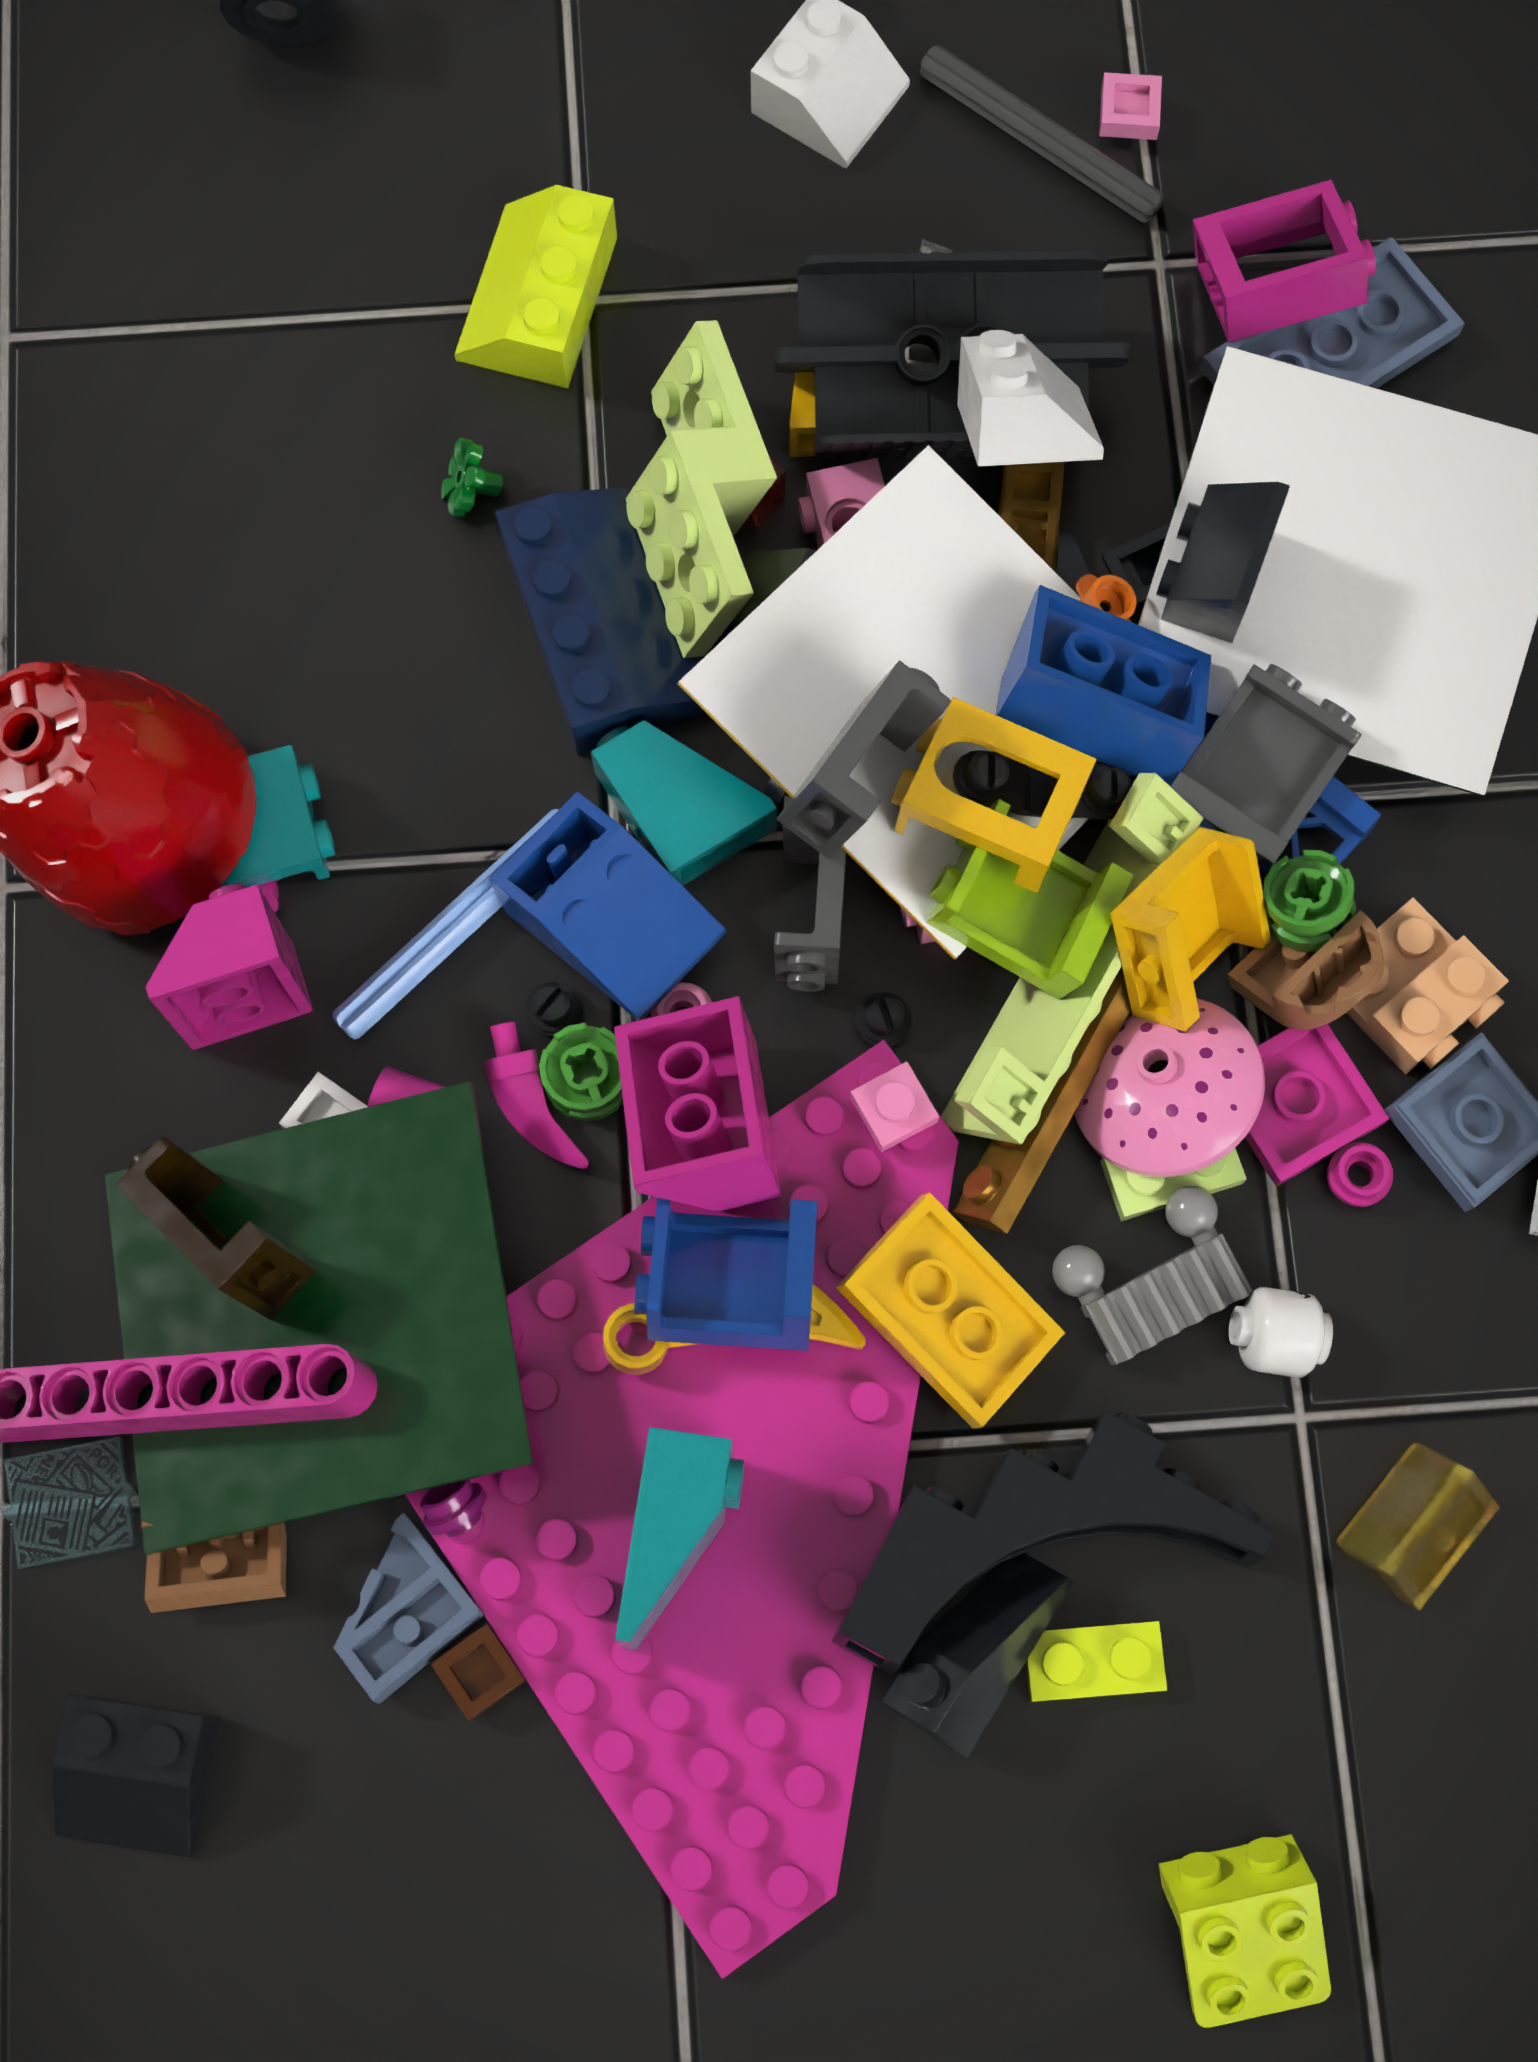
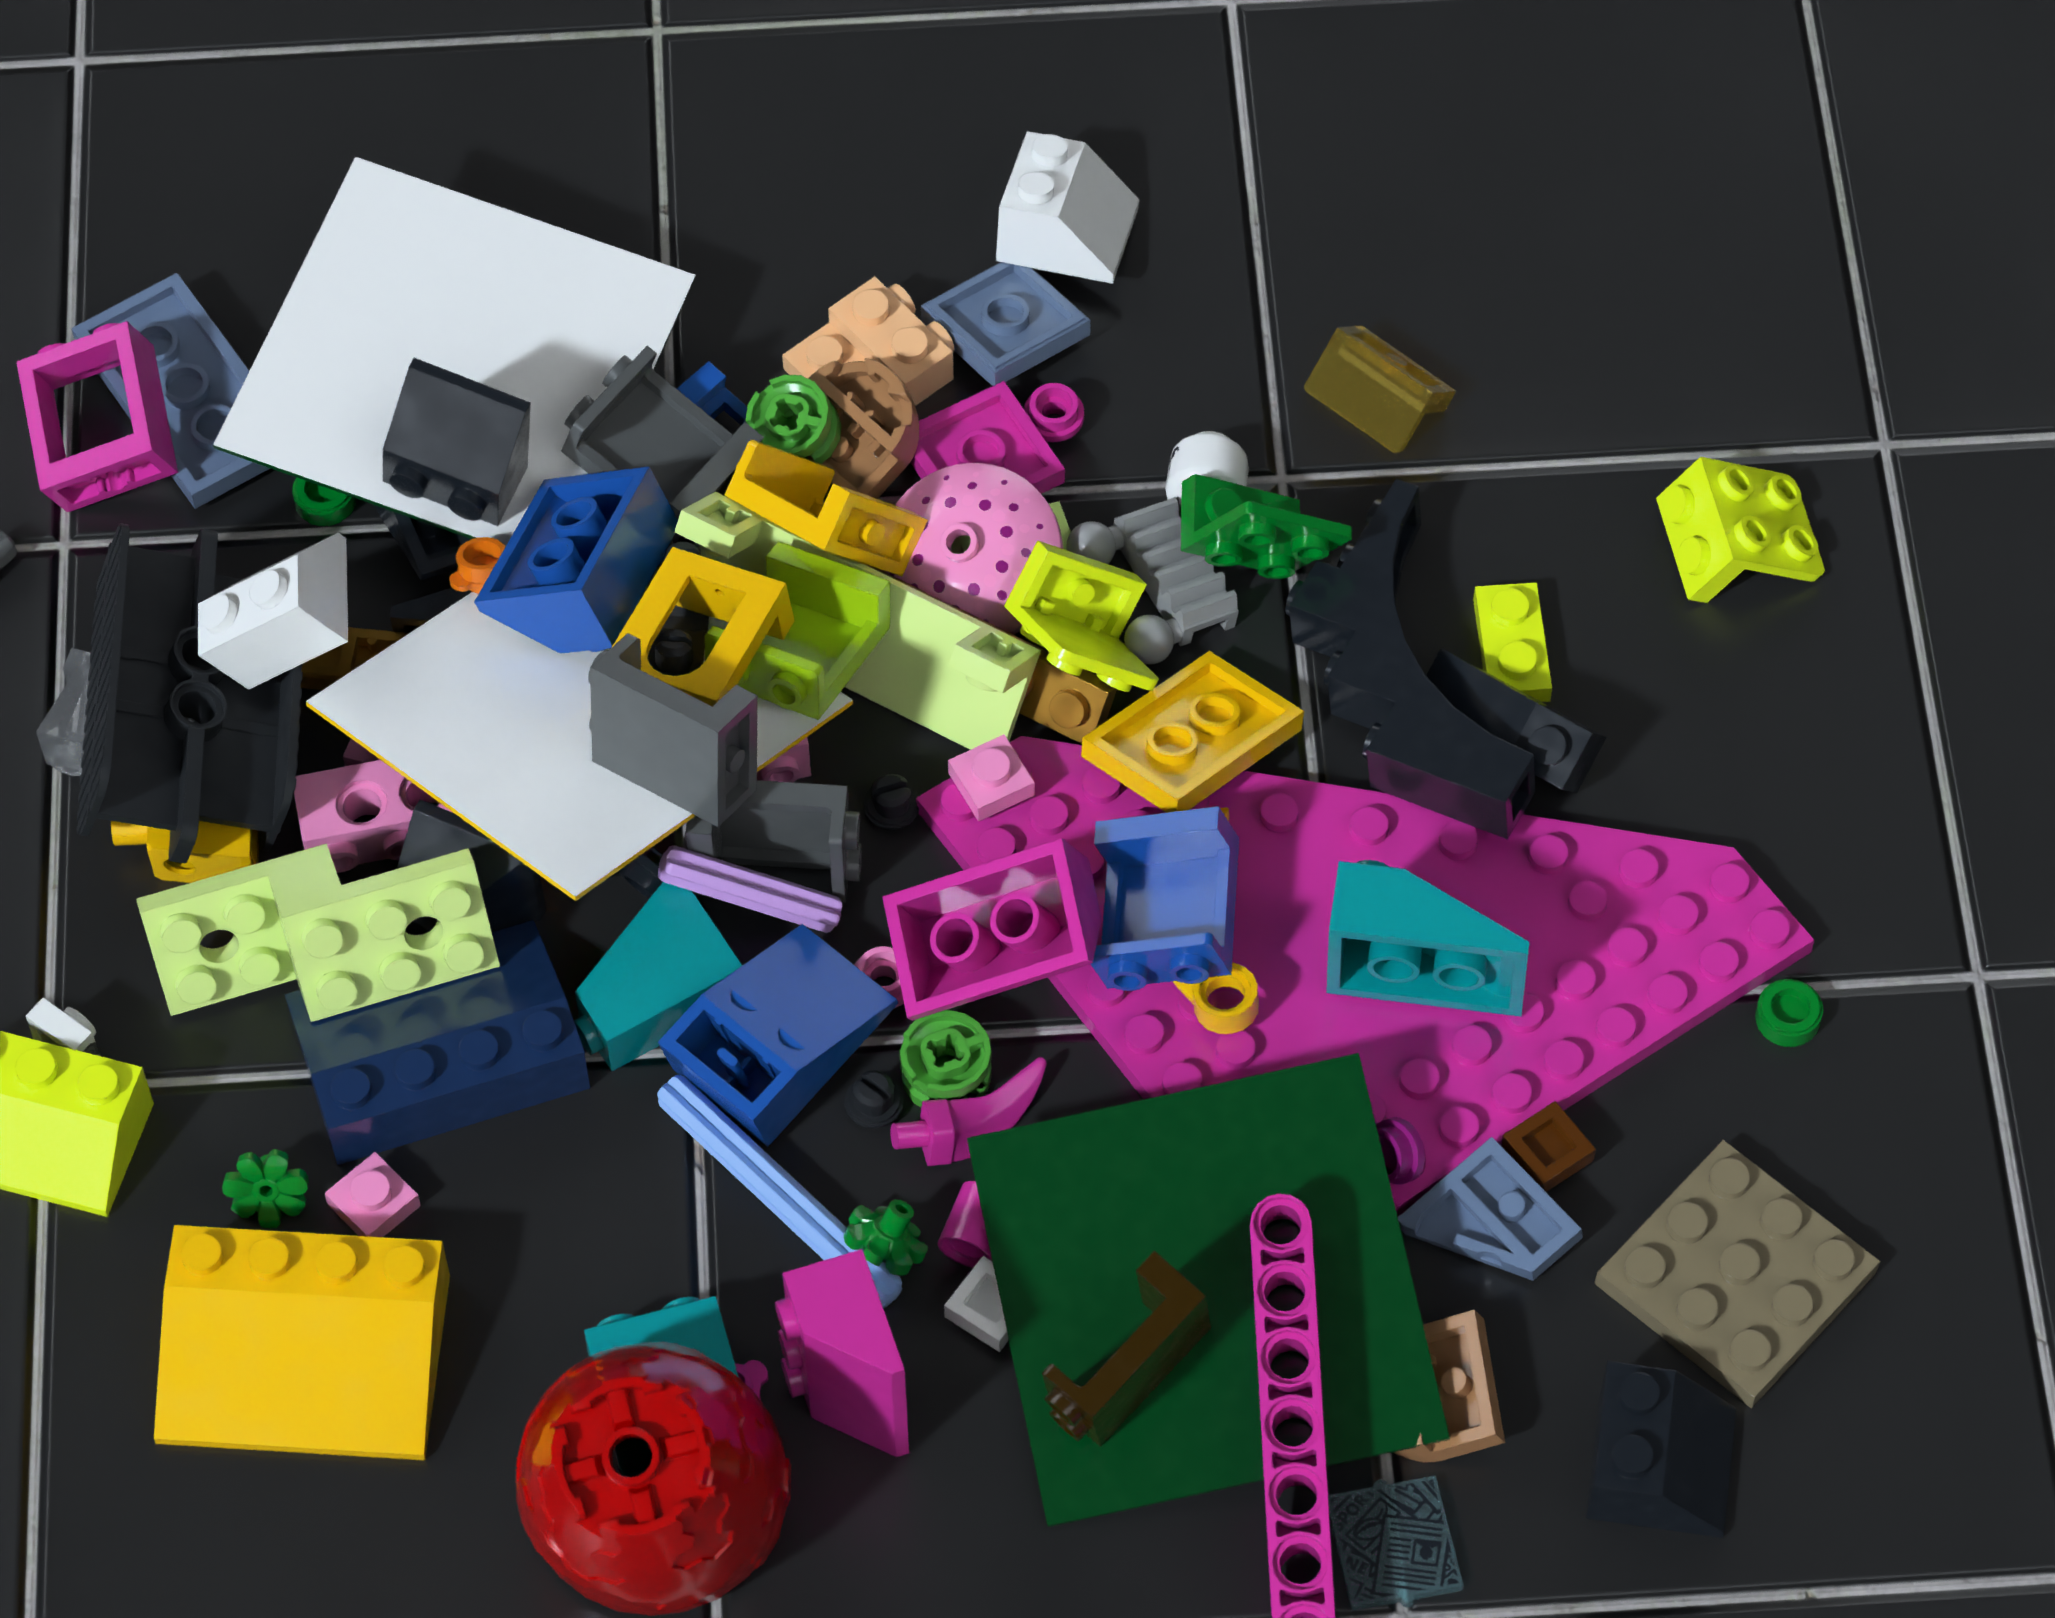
camera: 90 degrees left, 15 degrees down
(312, 518) = (300, 1342): none -> yellow slope
(338, 1869) = (1737, 1273): none -> dark tan plate
(395, 1018) = (886, 1236): none -> green plant
(459, 571) = (372, 1198): none -> bright pink plate
(617, 301) = (61, 1027): none -> white plate
(642, 1945) = (1789, 1012): none -> green tile
(761, 878) = (749, 889): none -> lavender axle
(1069, 1188) = (1078, 614): none -> neon yellow bracket
(1202, 1371) = (1253, 528): none -> green bracket

